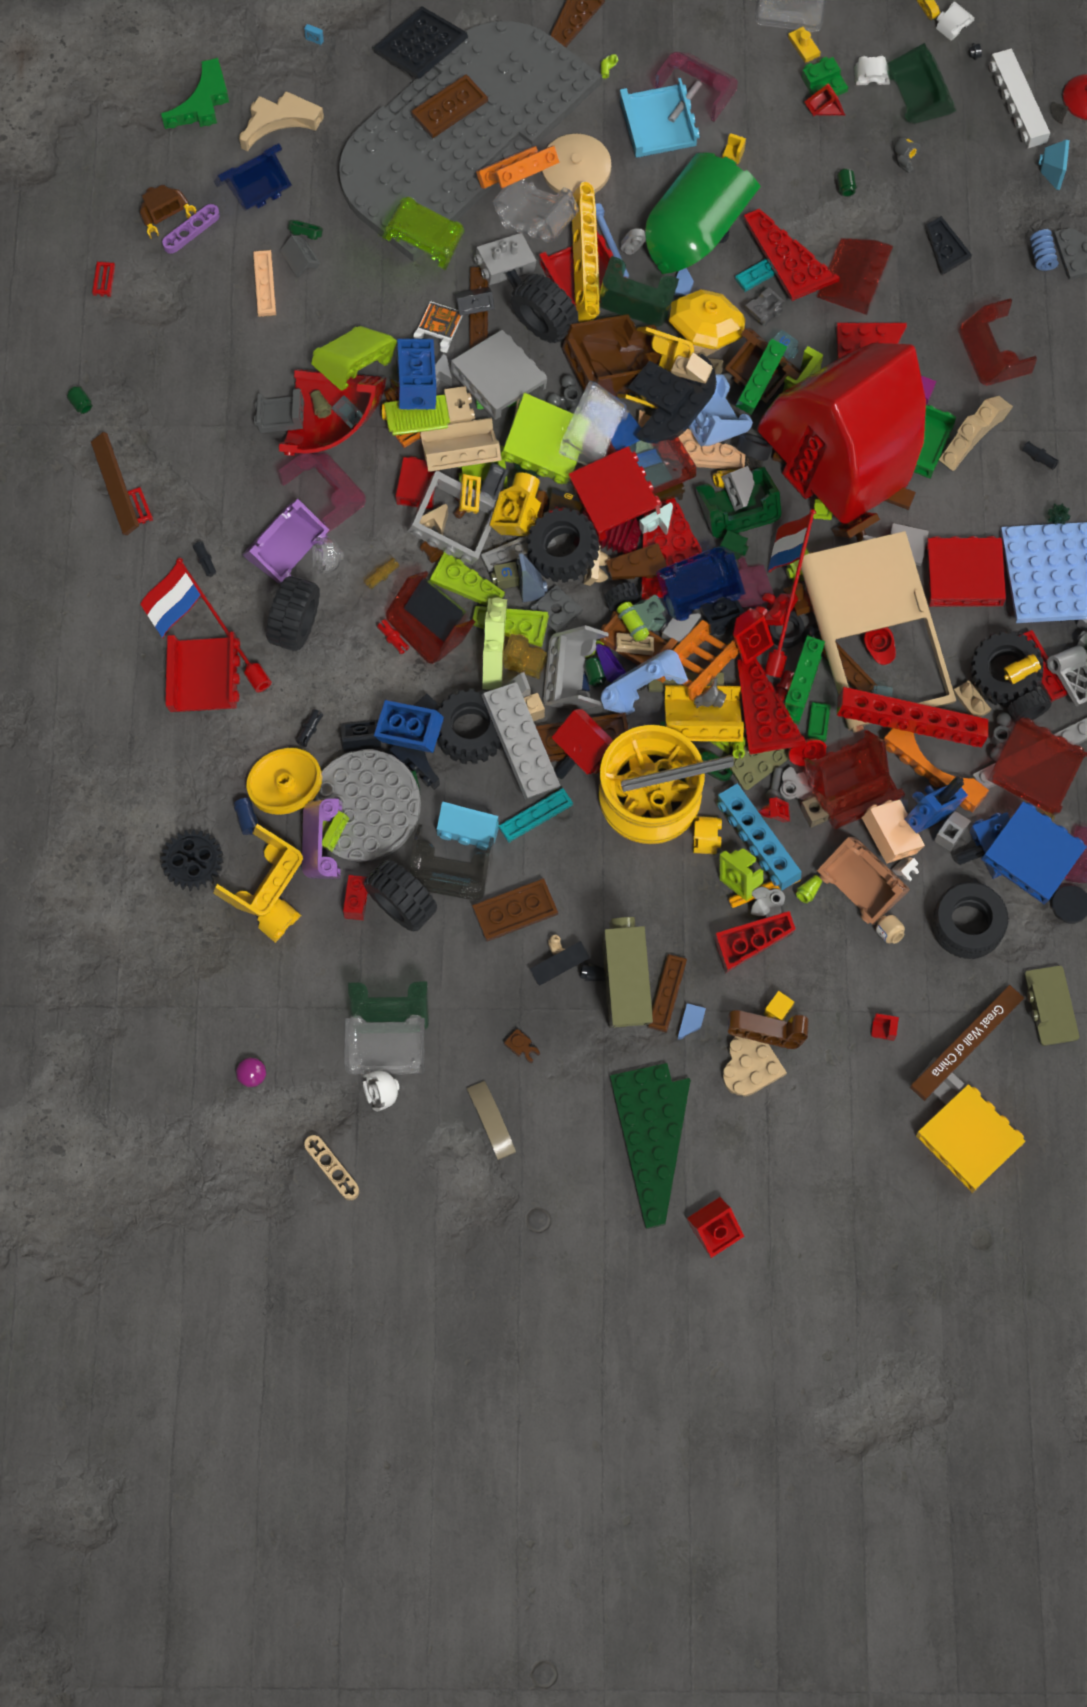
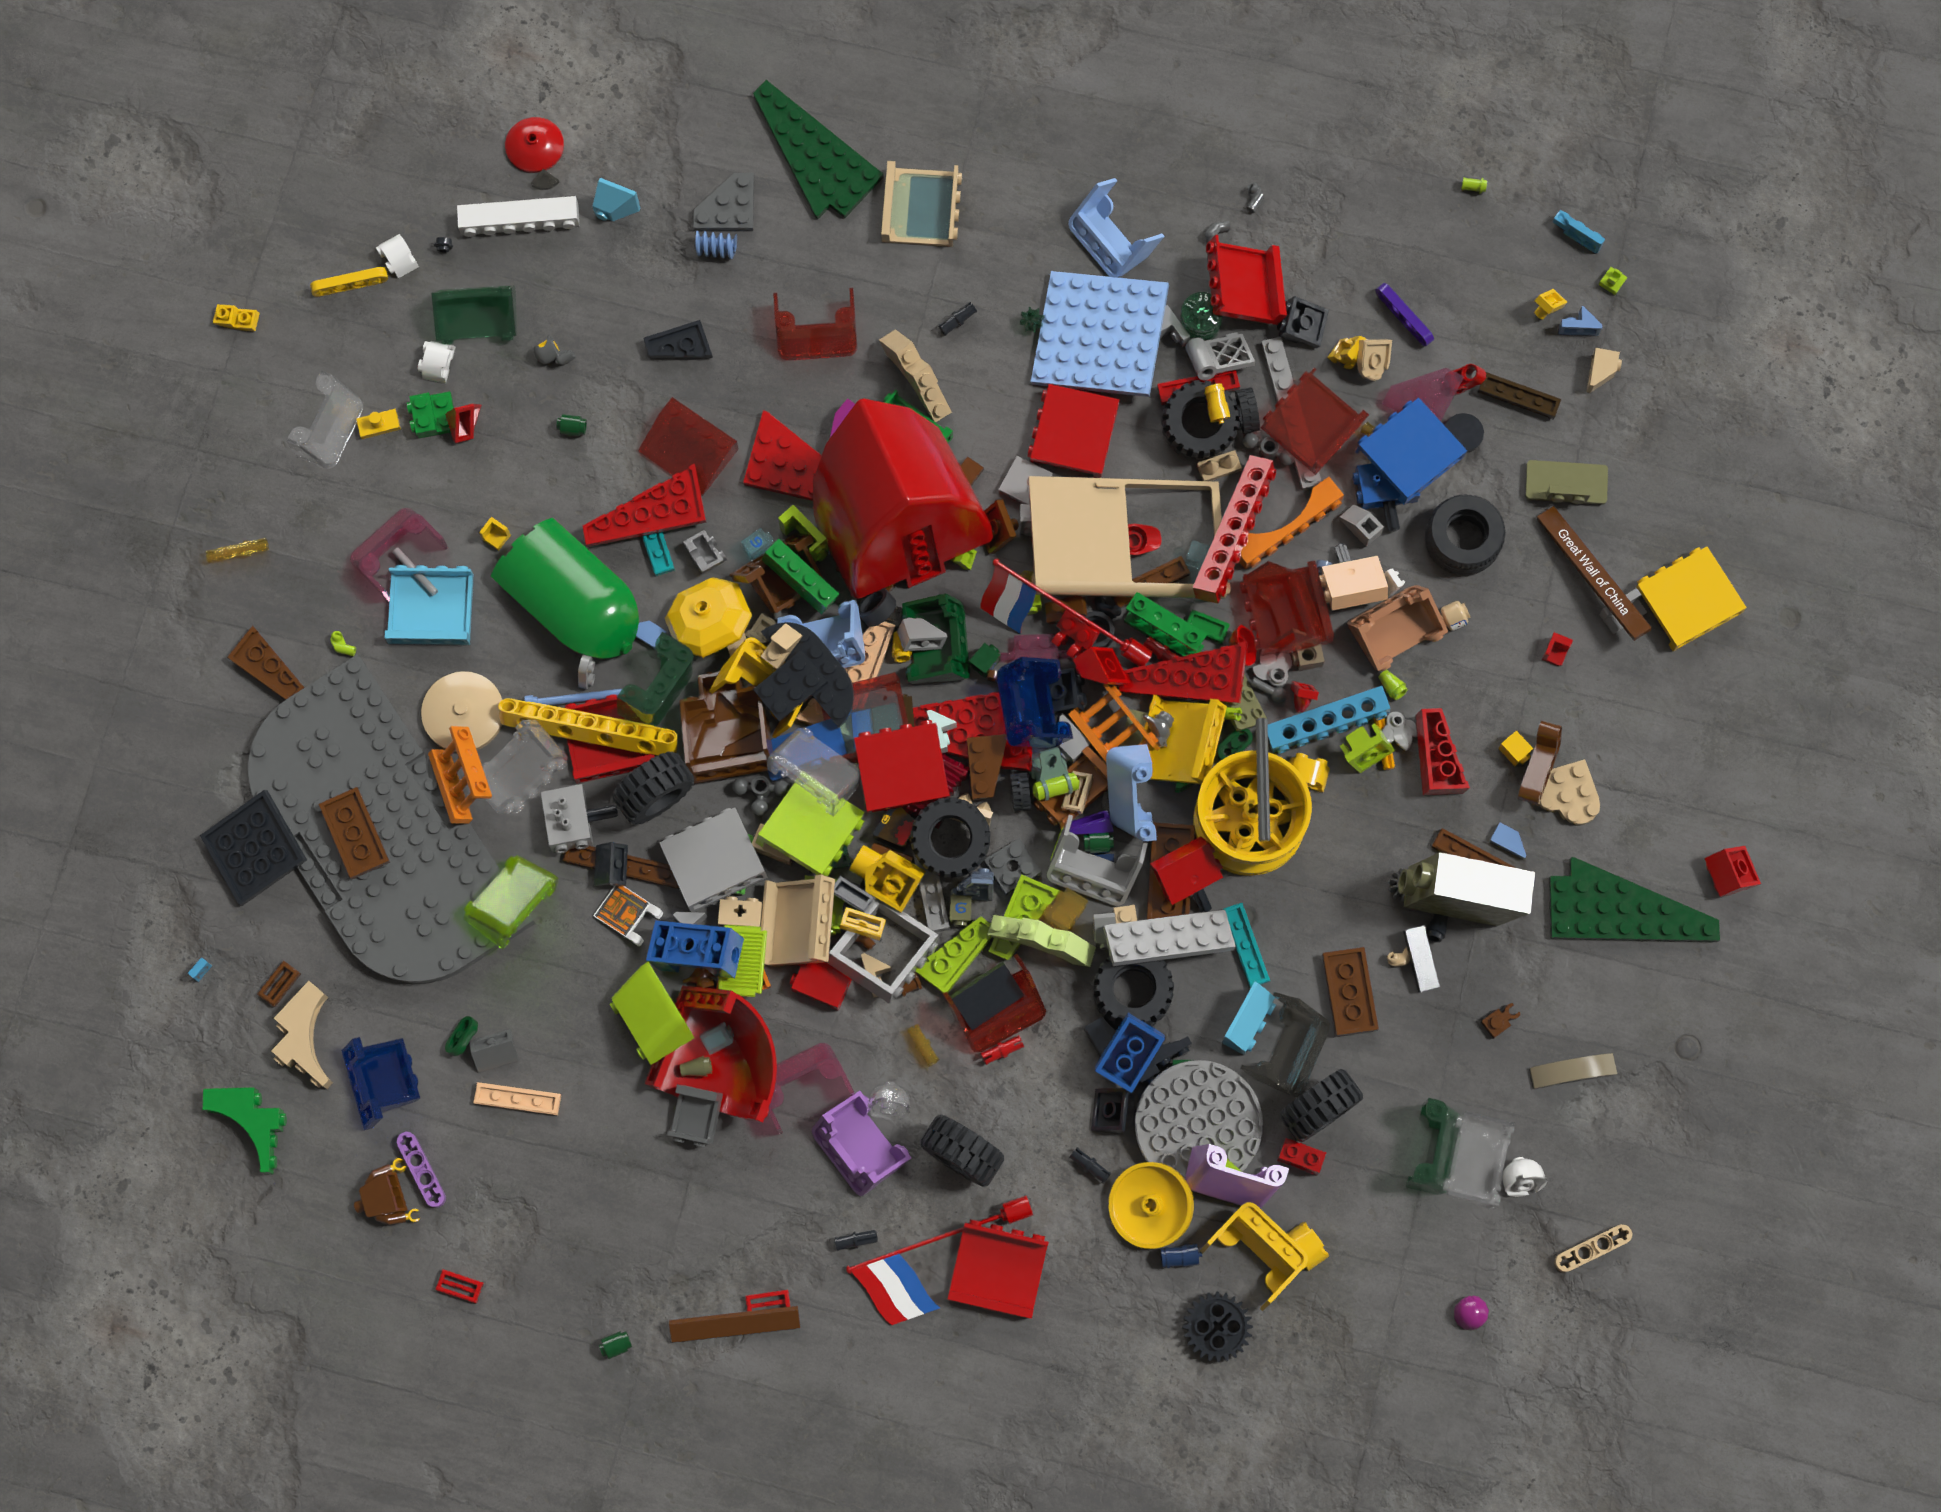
camera: 75 degrees left, 5 degrees up
(315, 95) = (286, 987): none -> reddish brown tile
(936, 805) = (1340, 532): blue piece -> none

